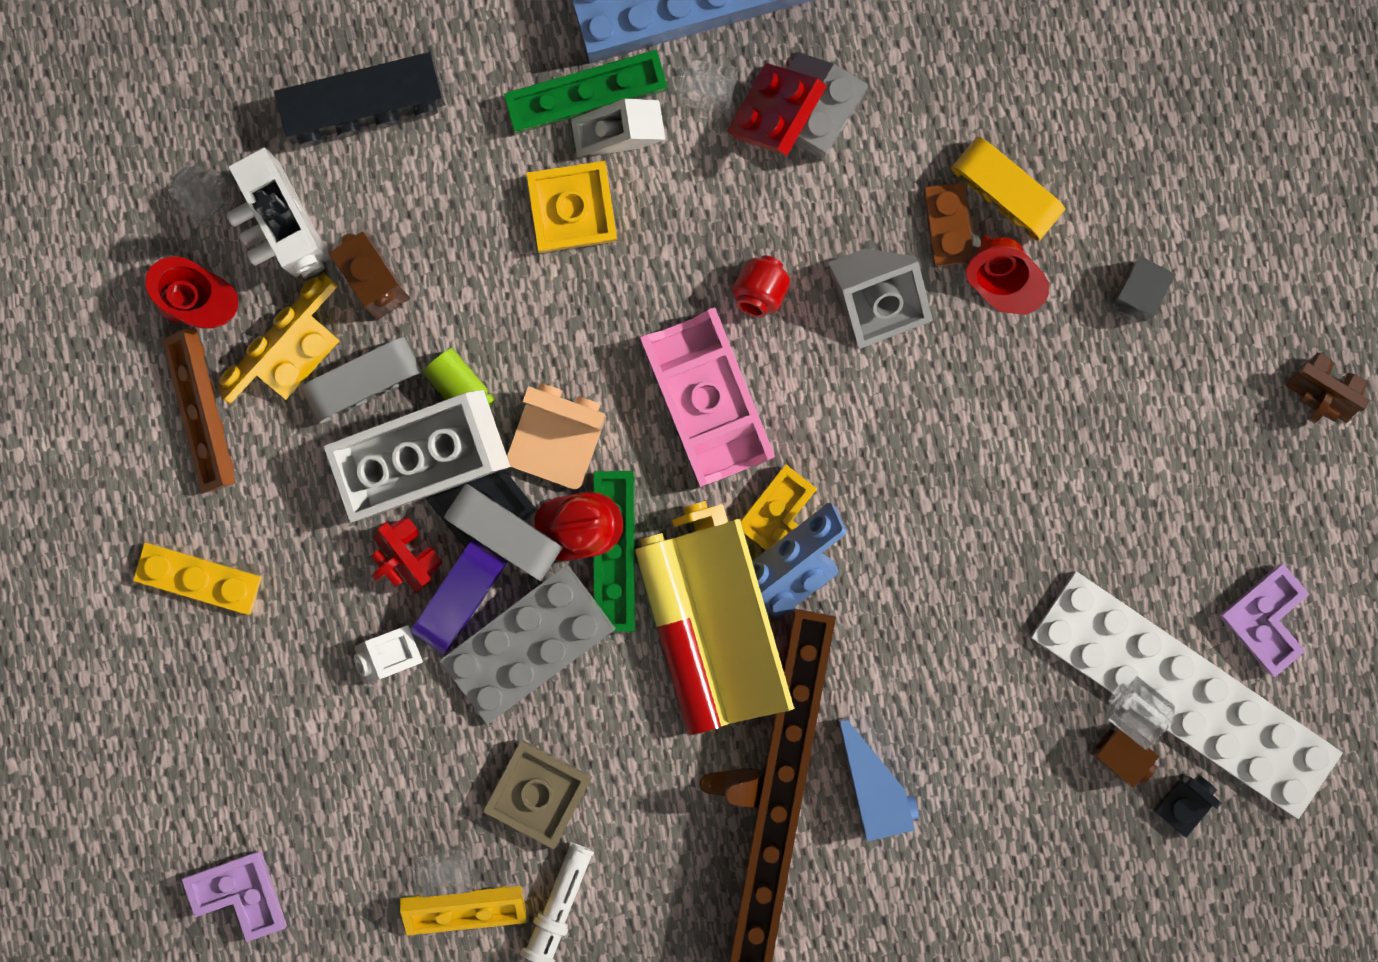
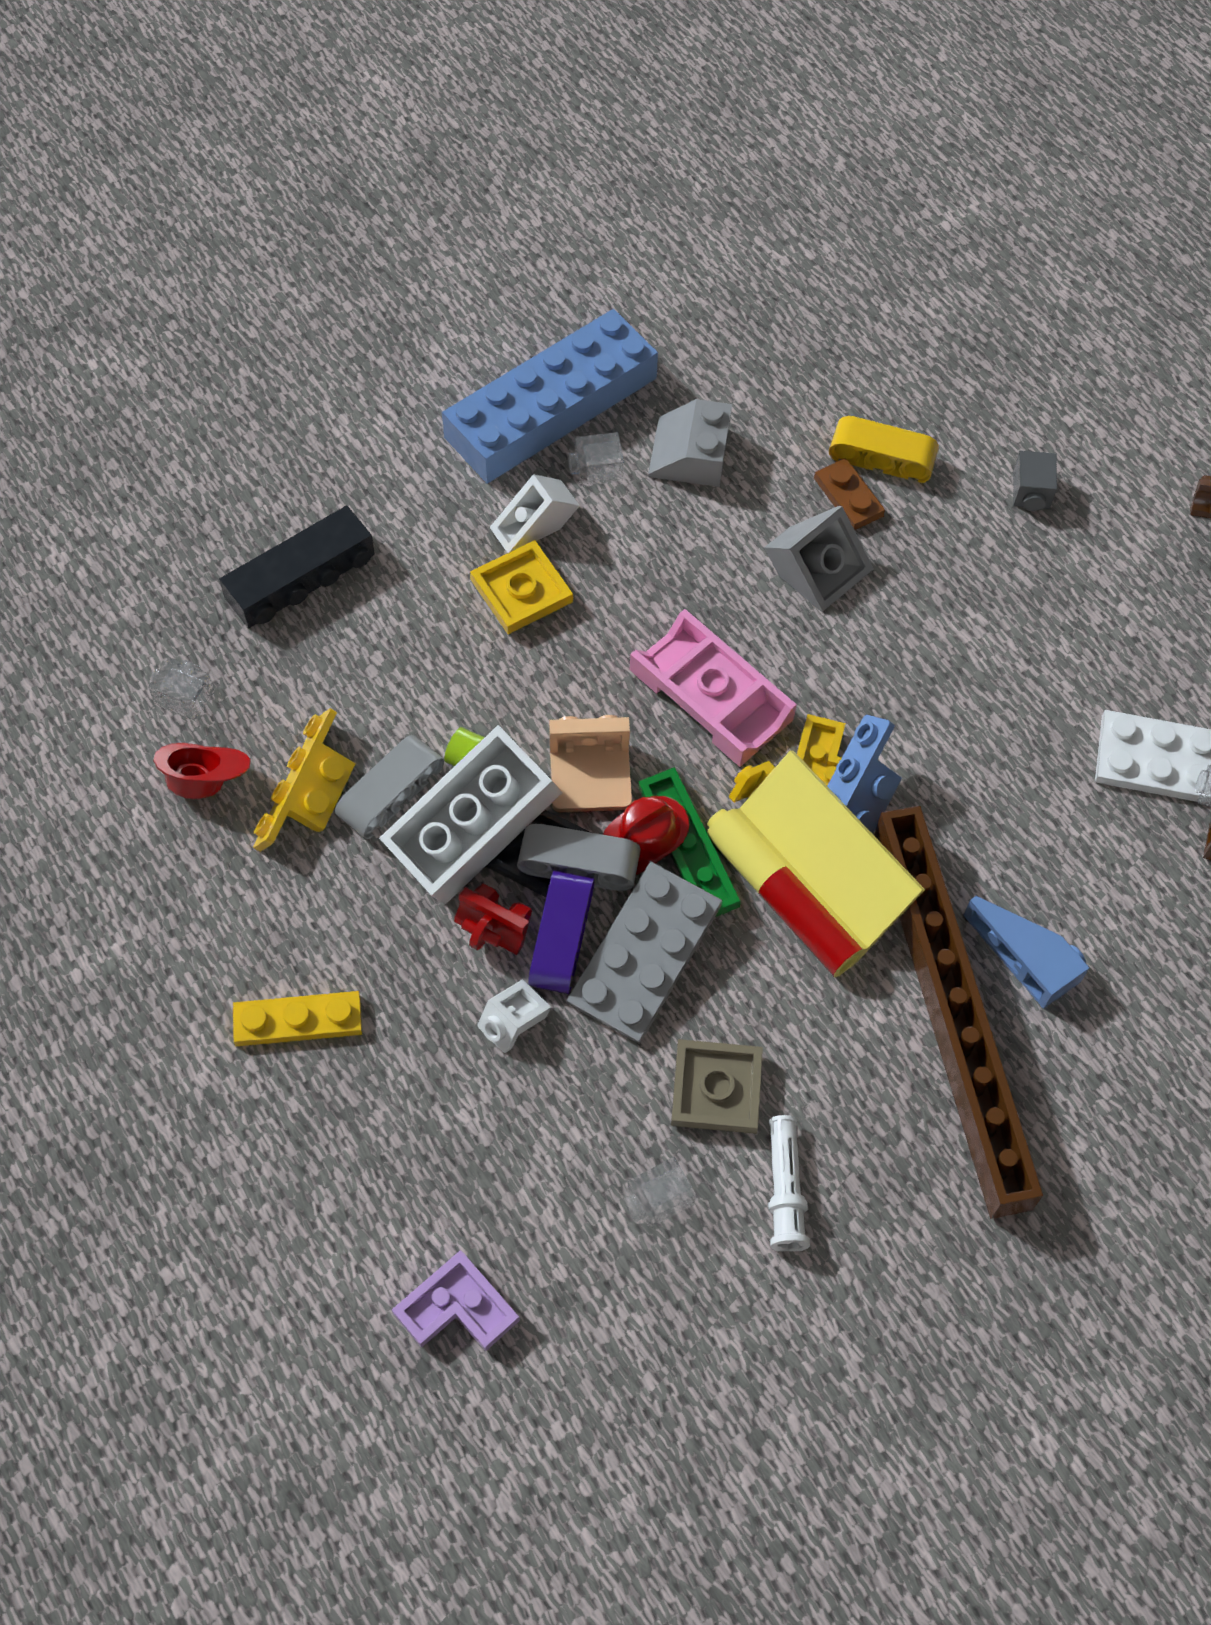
camera: 25 degrees left, 25 degrees down
(199, 410) = (244, 867): dark orange plate -> none
(278, 215) = (261, 669): white piece -> none
(368, 274) = (362, 692): reddish brown torso -> none
(463, 910) = (694, 1225): yellow plate -> none
(585, 91) = (486, 502): green plate -> none
(738, 786) = (905, 1005): reddish brown helmet -> none
(761, 286) = (715, 587): red head -> none
(776, 108) = (663, 451): red plate -> none
(1007, 276) = (921, 507): red piece -> none

